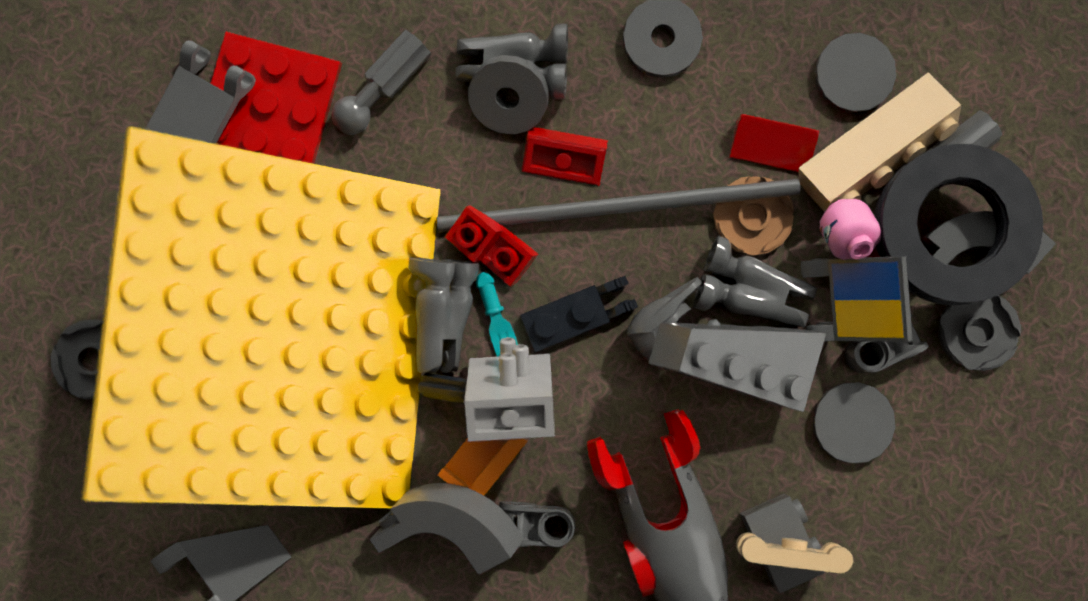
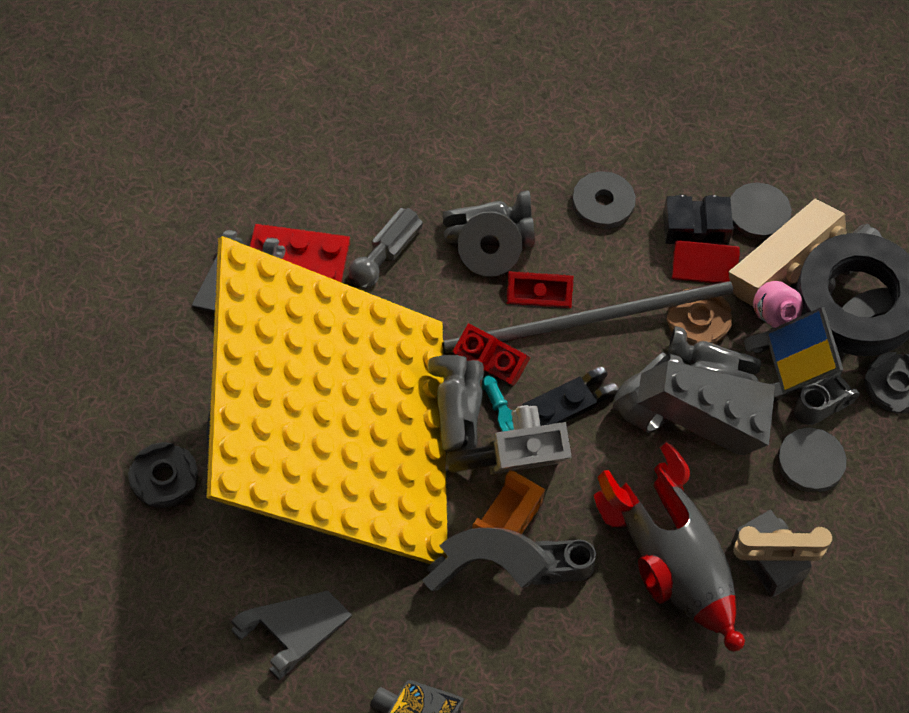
camera: 15 degrees left, 25 degrees down
(775, 83) = (698, 221): none -> black brick

